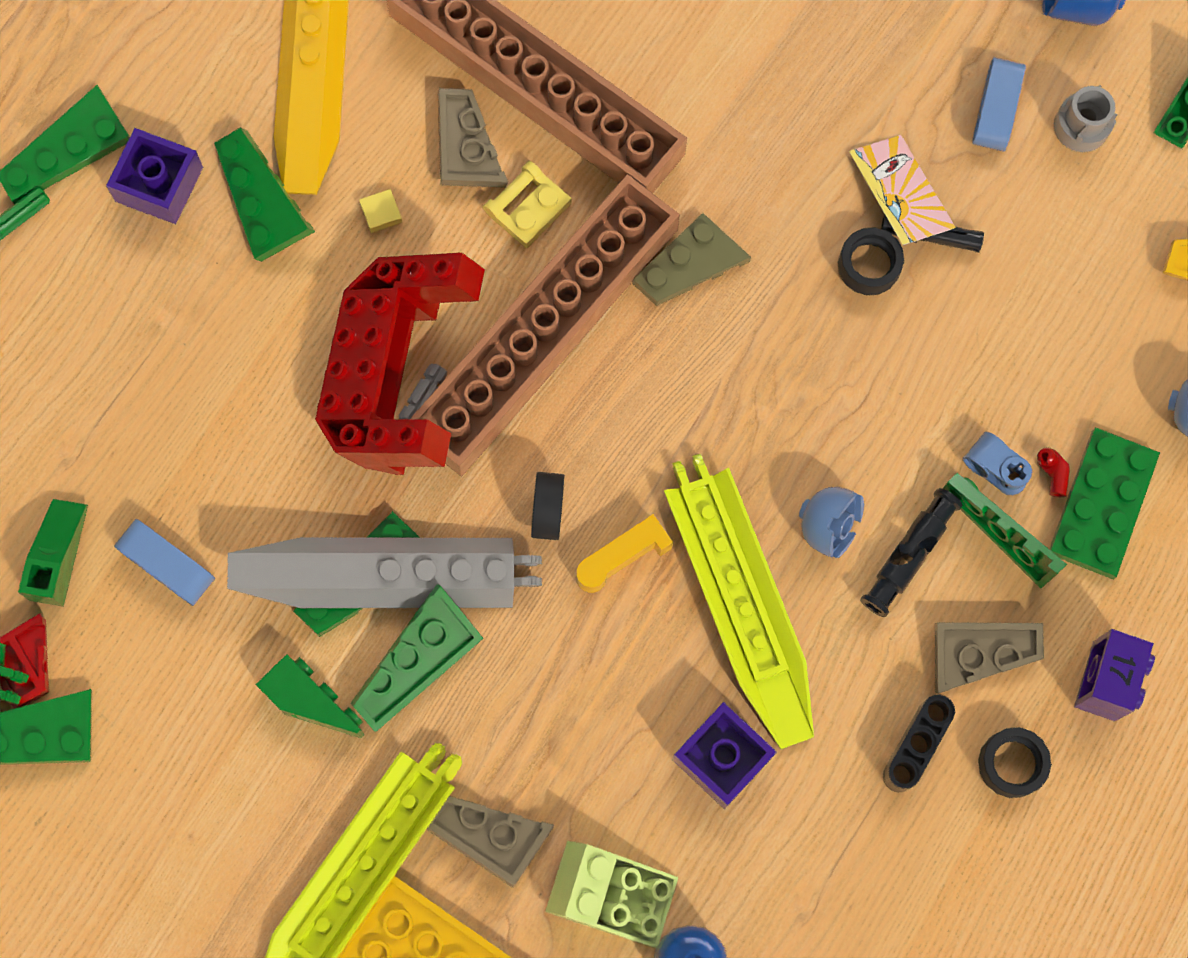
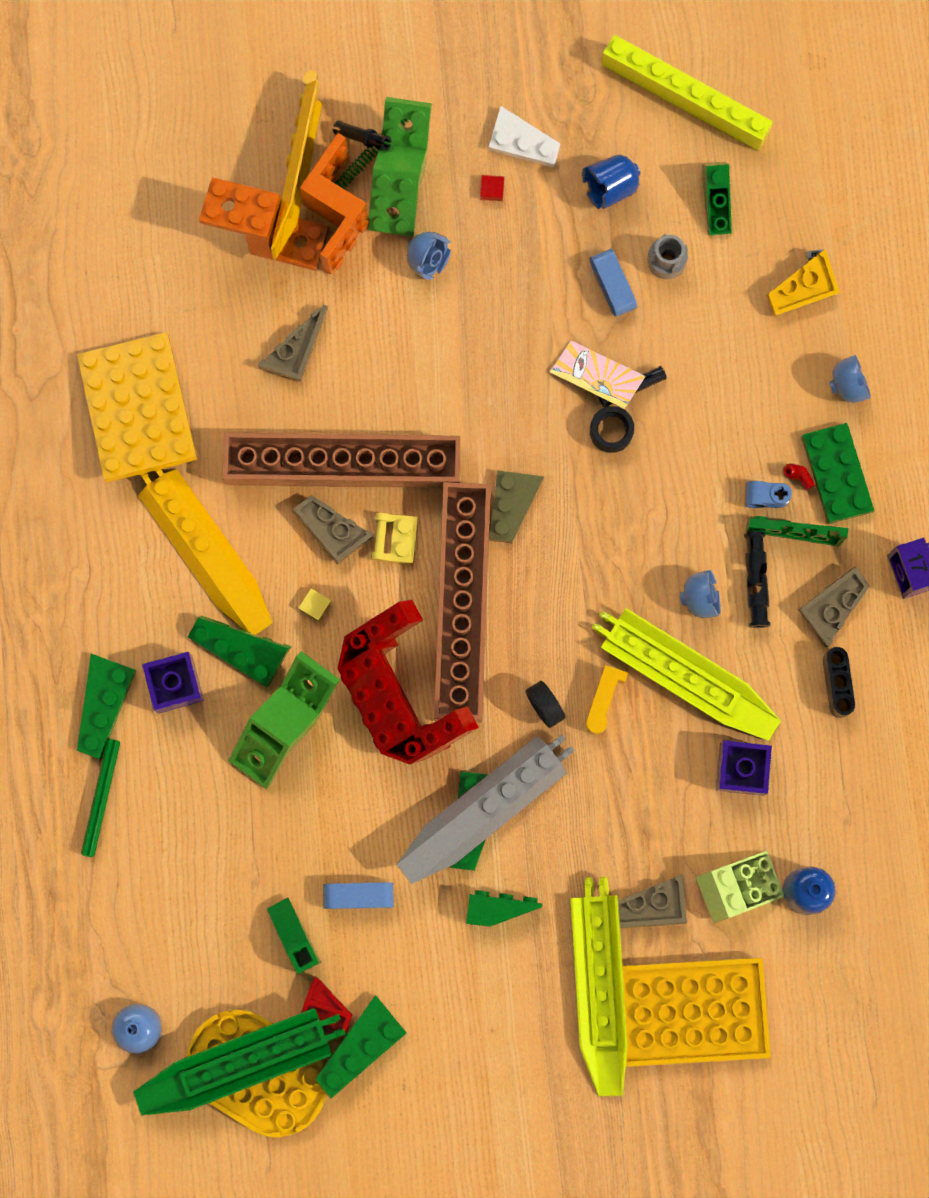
camera: 35 degrees left, 5 degrees up
(238, 301) = (283, 720): none -> bright green bracket
(420, 655) = (539, 842): green wing -> none
(424, 389) = (424, 693): light grey axle -> none
(1038, 749) = (914, 654): black tyre -> none

